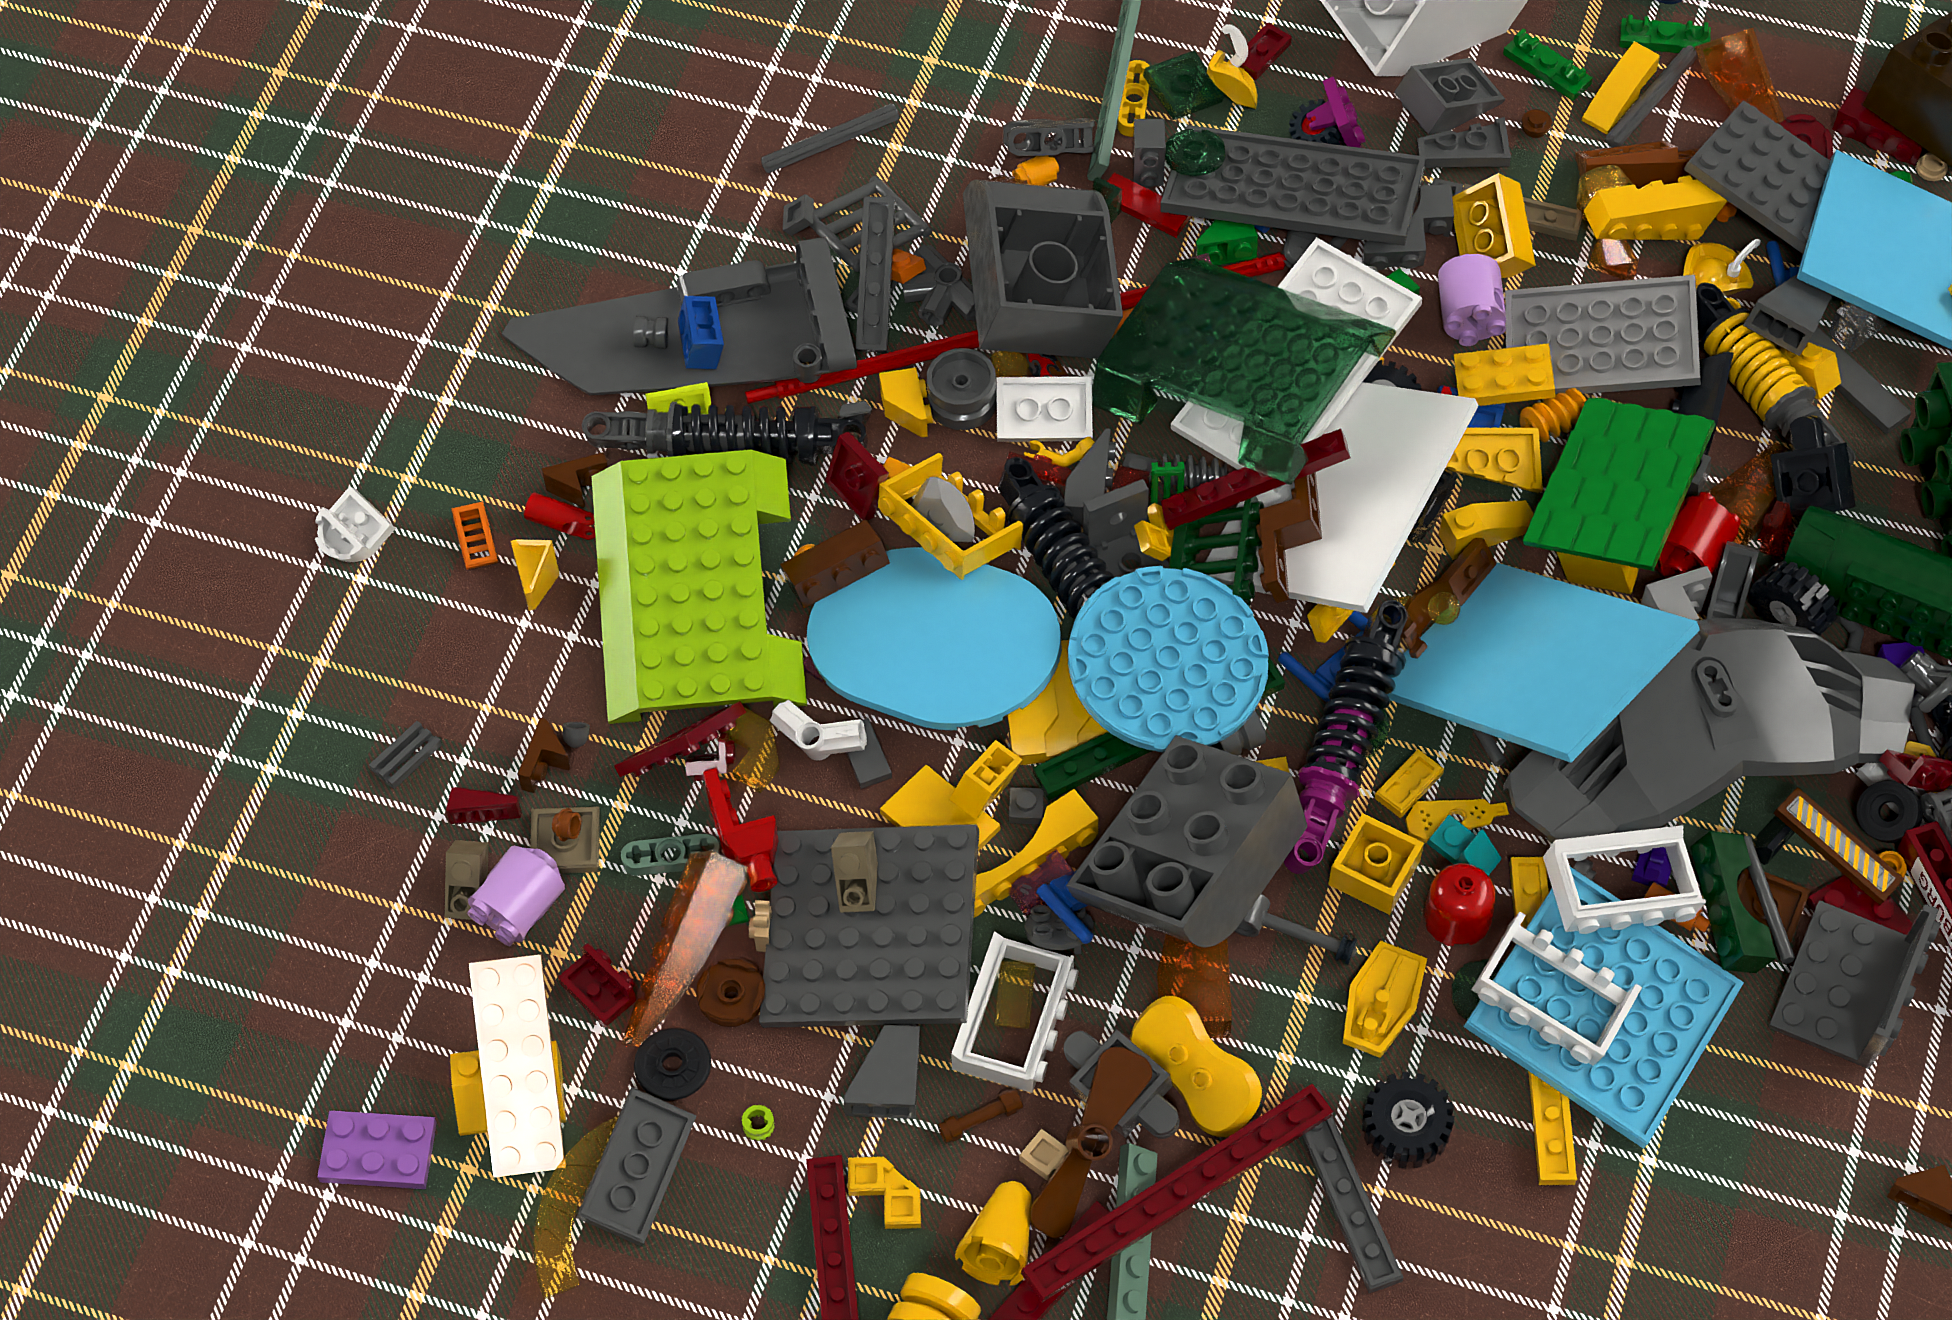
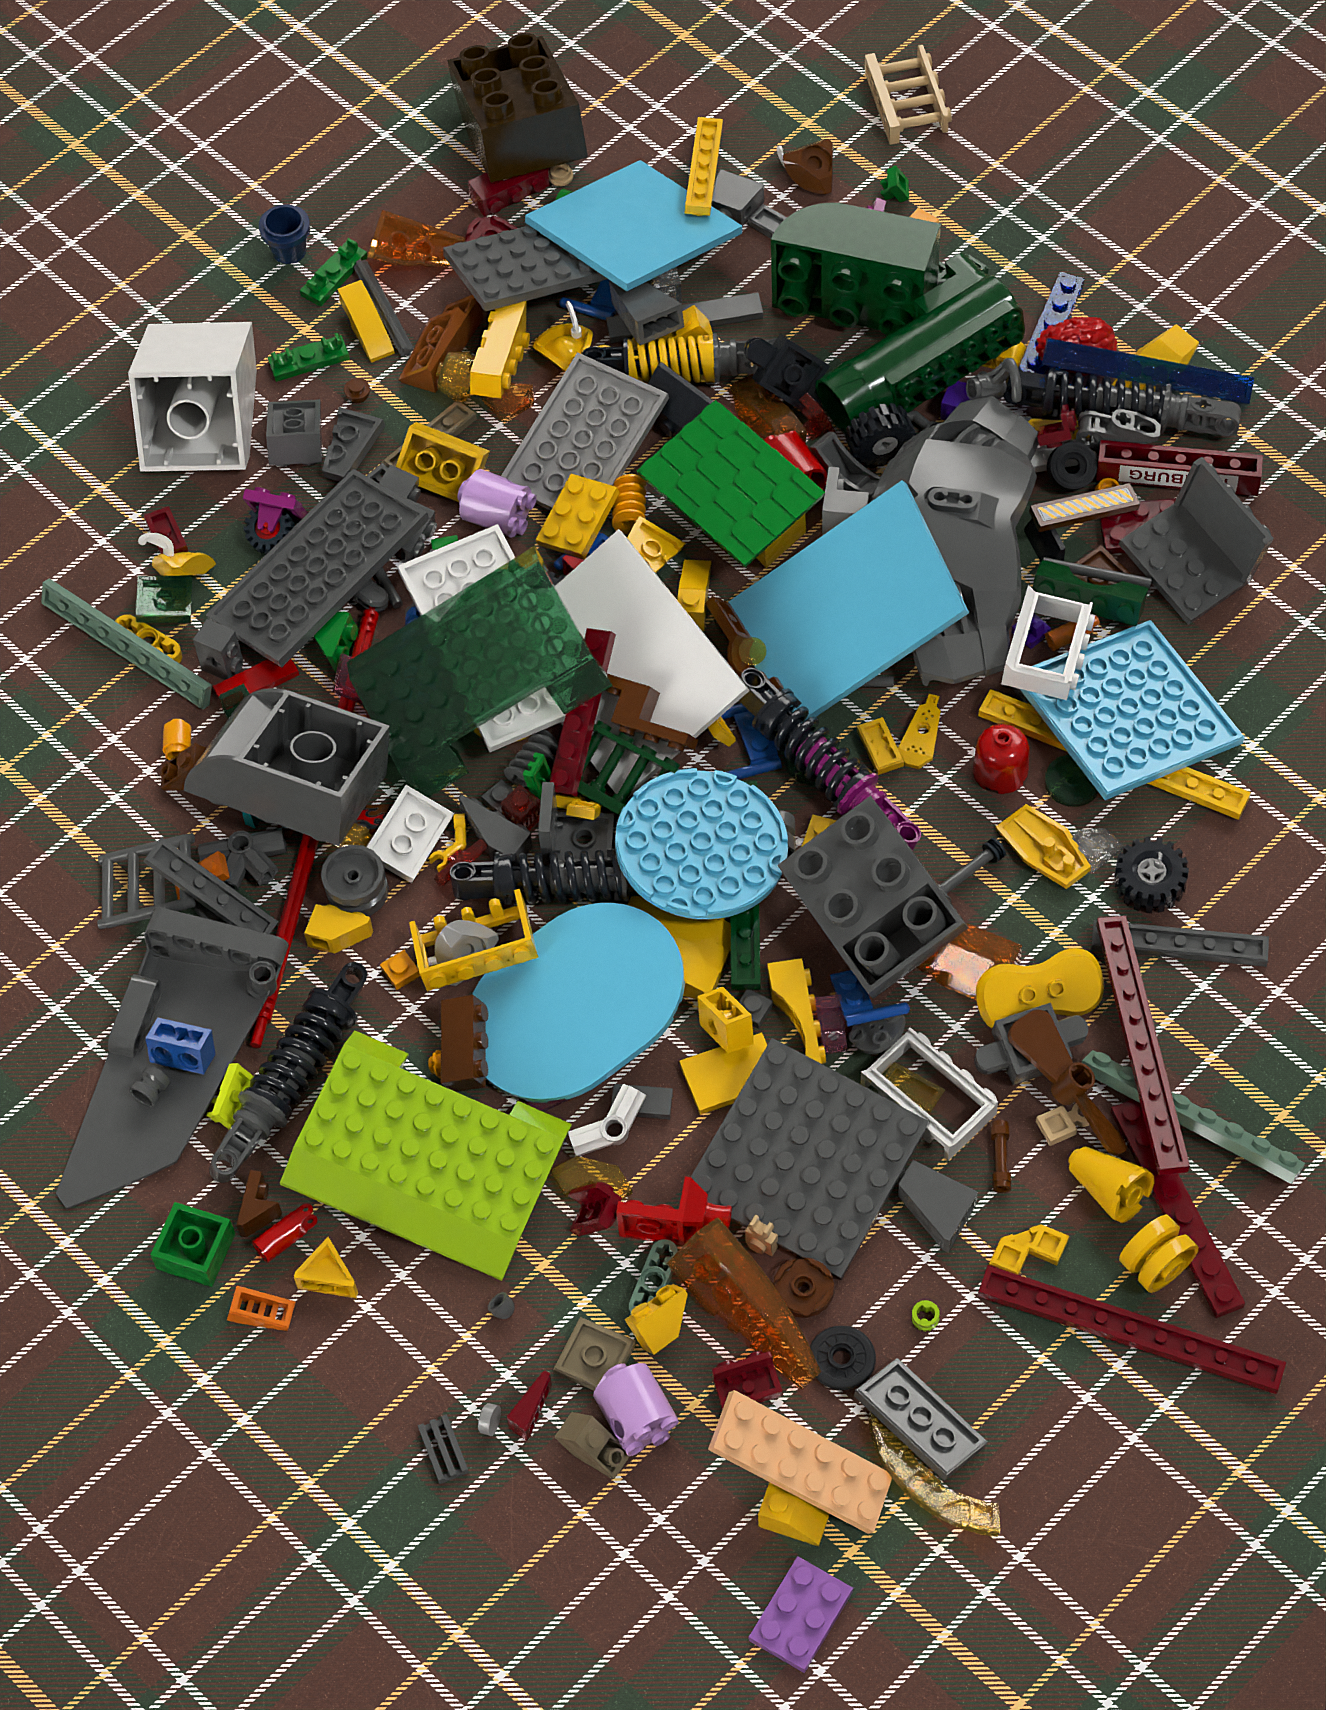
camera: 60 degrees left, 0 degrees up
(351, 528) = (193, 1403): white slope -> none
(450, 776) = (489, 1419): none -> light grey tile
(506, 446) = (193, 1244): none -> green brick
(542, 752) = (505, 1334): reddish brown slope -> none
(566, 824) = (589, 1344): dark orange plate -> none
(619, 872) = (660, 1319): none -> yellow slope
(681, 742) = (565, 1229): dark red plate -> none
(798, 215) = (101, 928): dark grey tile -> none
(829, 138) = (36, 874): dark grey axle -> none
(855, 871) = (765, 1139): dark tan slope -> none
(856, 476) = (393, 991): dark red plate -> none
(857, 410) = (330, 967): dark grey tile -> none
(1064, 138) = (156, 712): dark grey piece -> none
(1195, 152) = (245, 615): clear green tile -> none
(1376, 863) = (939, 795): yellow brick -> none
(1411, 1048) = (1097, 846): none -> clear slope
(1463, 846) = (953, 736): teal slope -> none
(1569, 964) = (1148, 698): white window -> none

